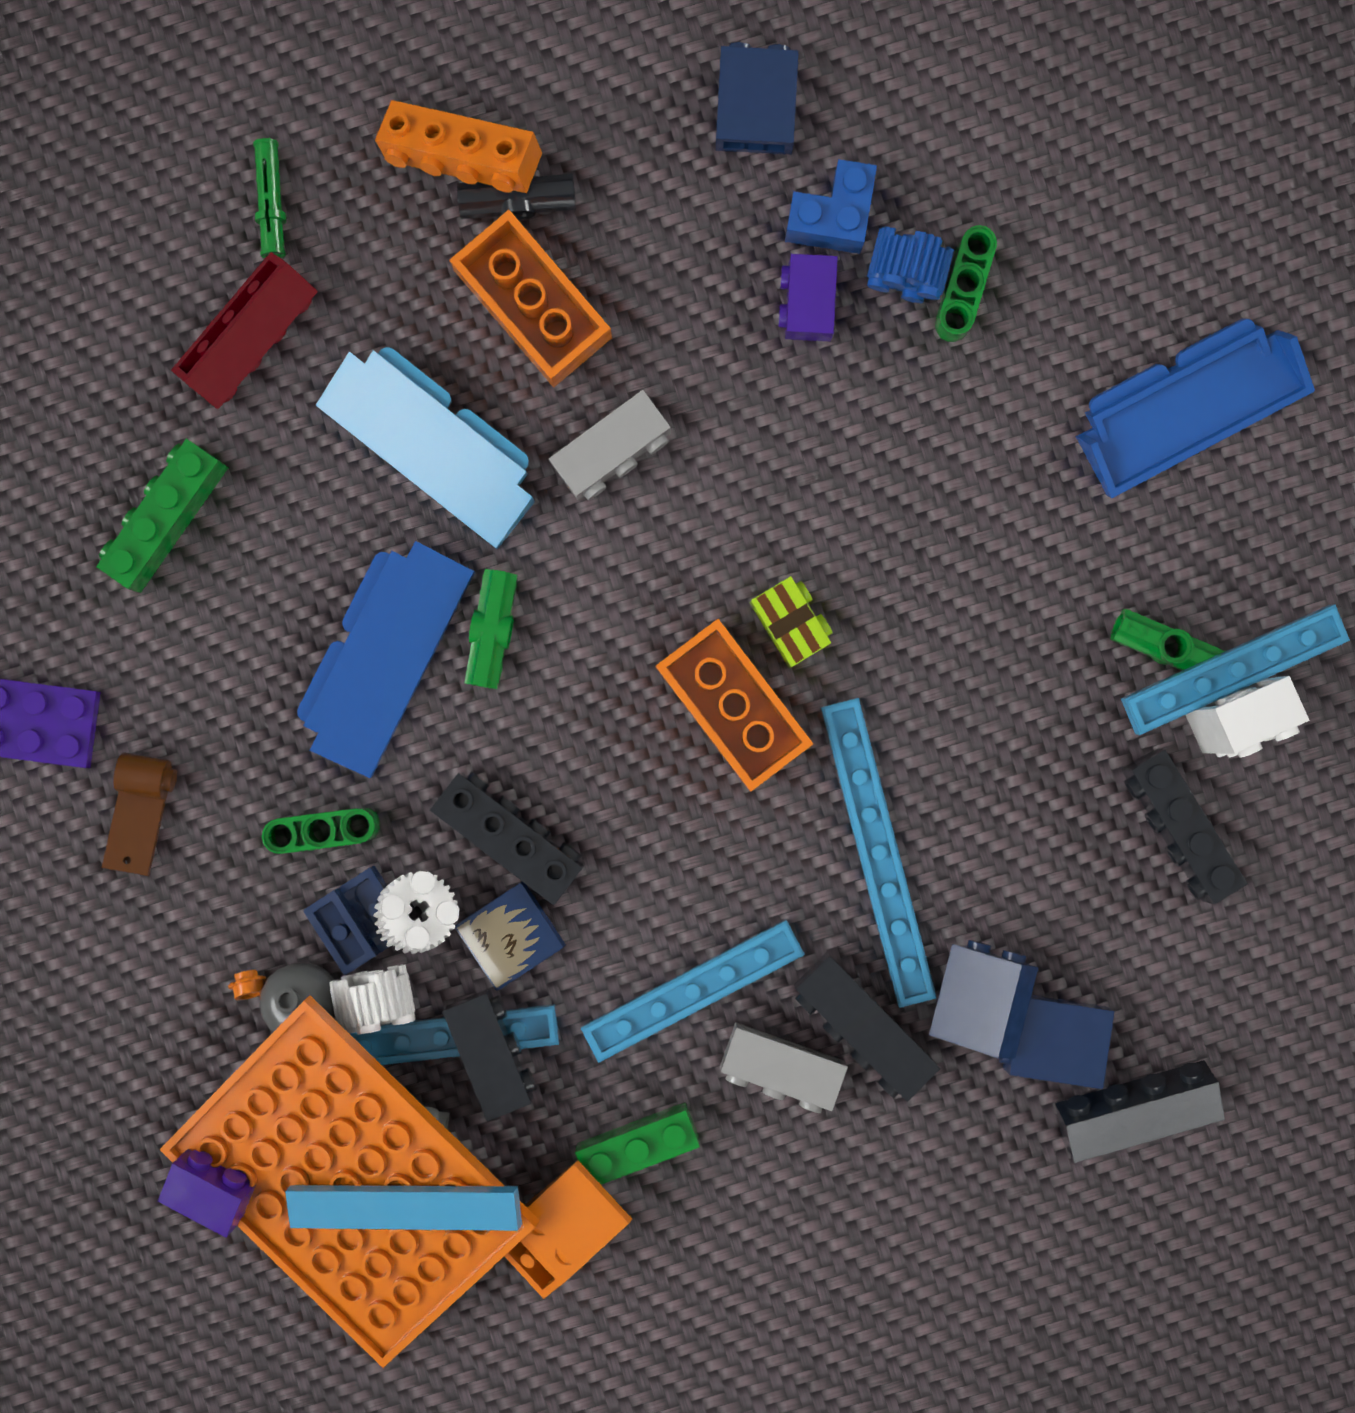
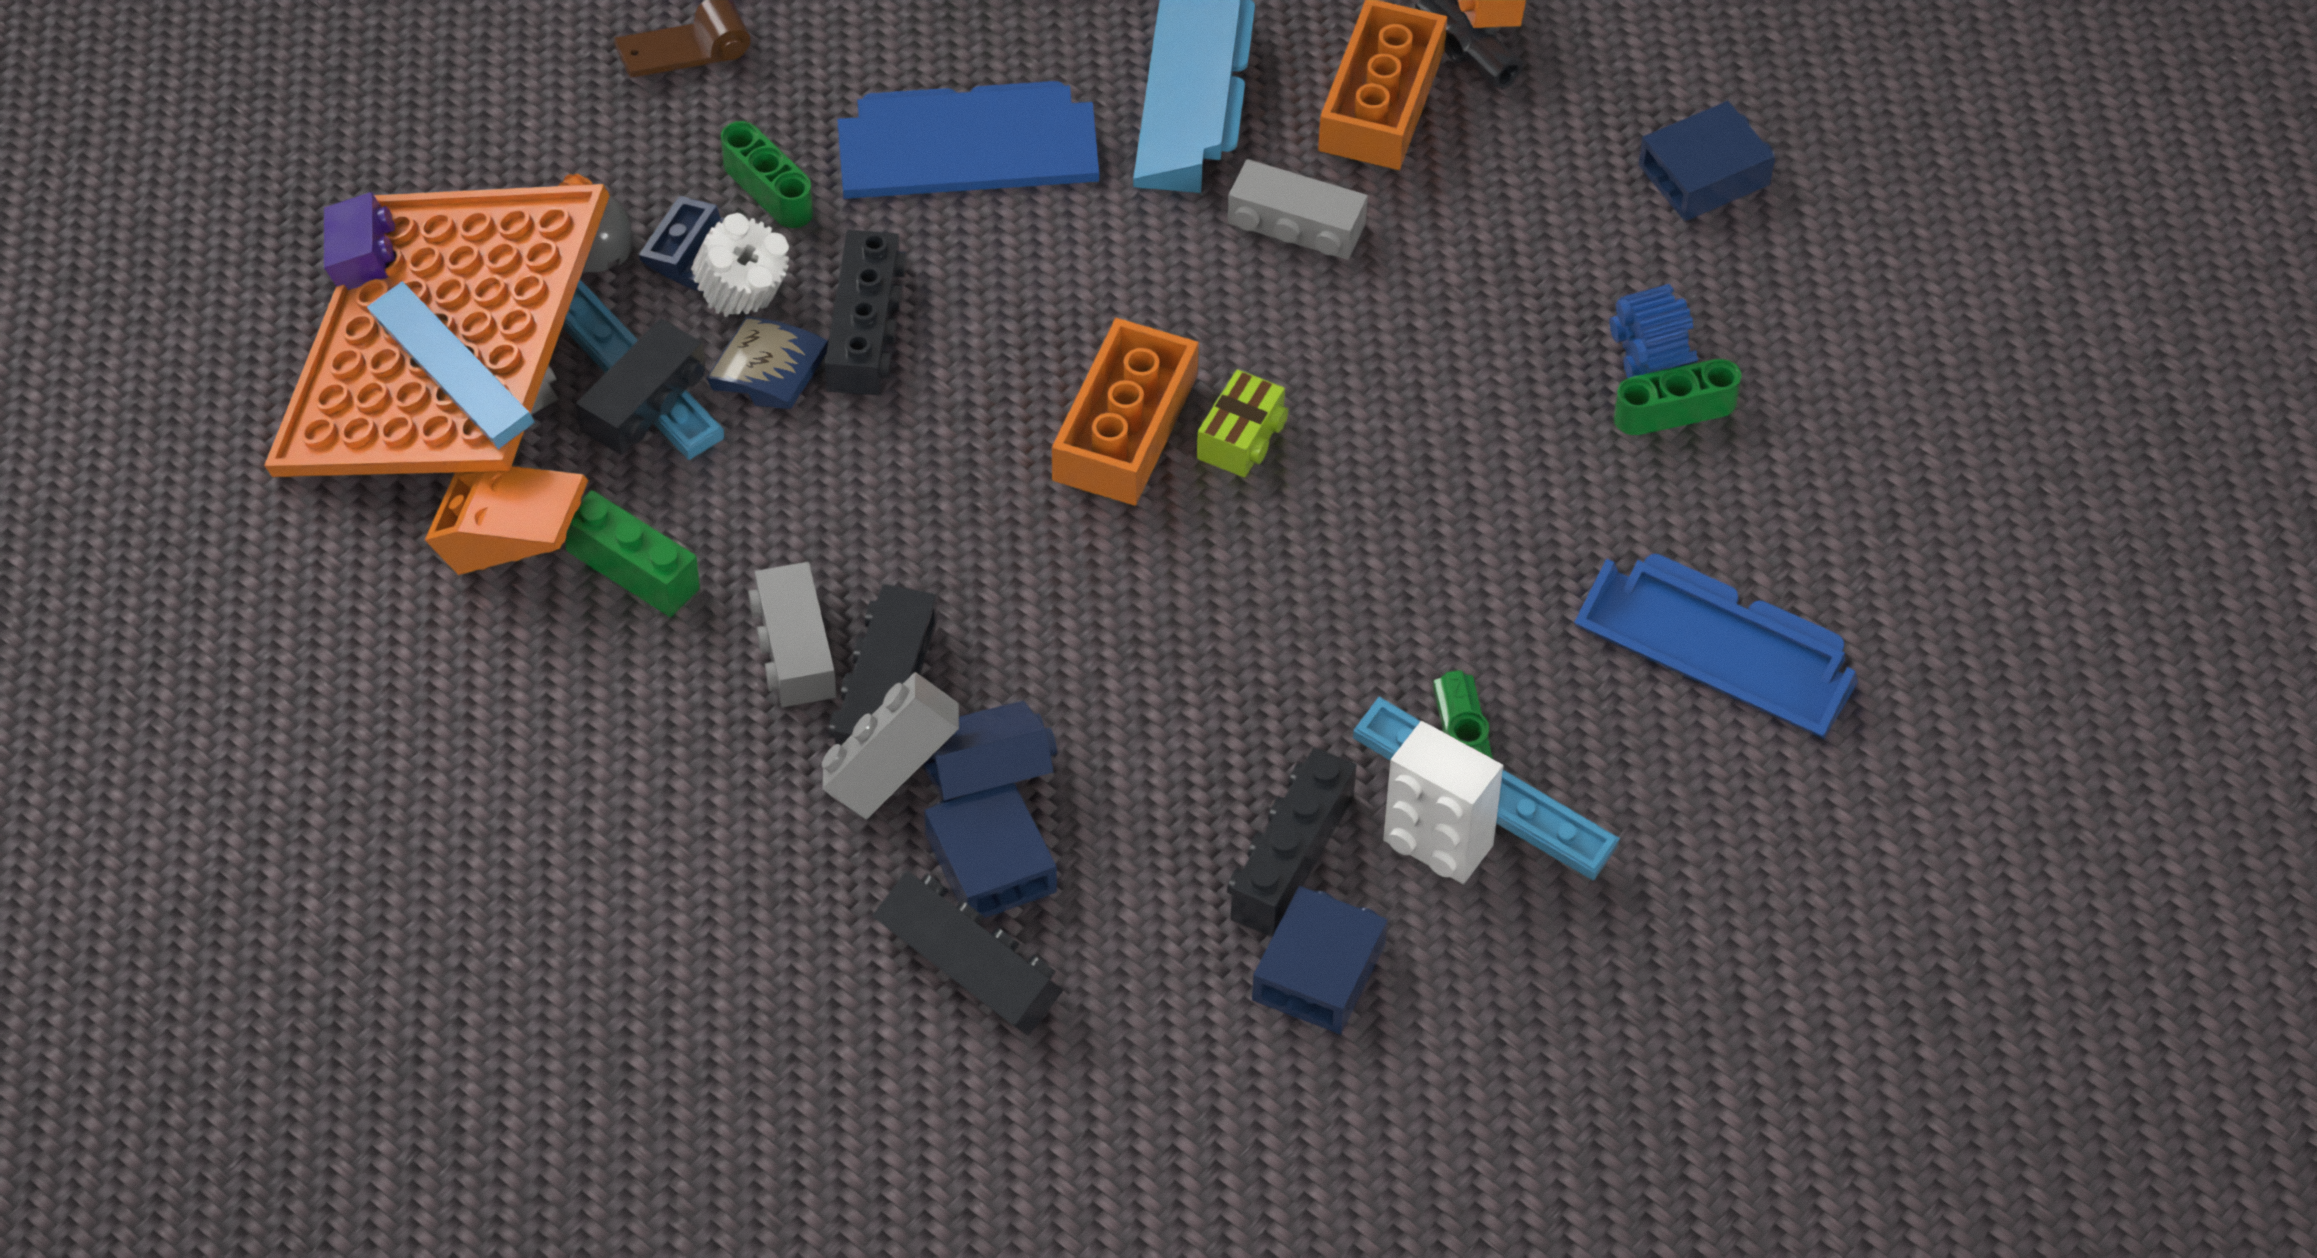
camera: 55 degrees right, 35 degrees down
(373, 999) = (632, 273): white brick -> none
(491, 629) = (1054, 207): green piece -> none
(692, 990) = (814, 531): dark azure tile -> none
(810, 297) = (1561, 287): dark purple brick -> none
(836, 220) = (1645, 261): blue brick -> none
(878, 853) = (1079, 606): dark azure tile -> none
(957, 1076) = (889, 745): none -> light grey brick
(1287, 868) = (1319, 959): none -> dark blue brick

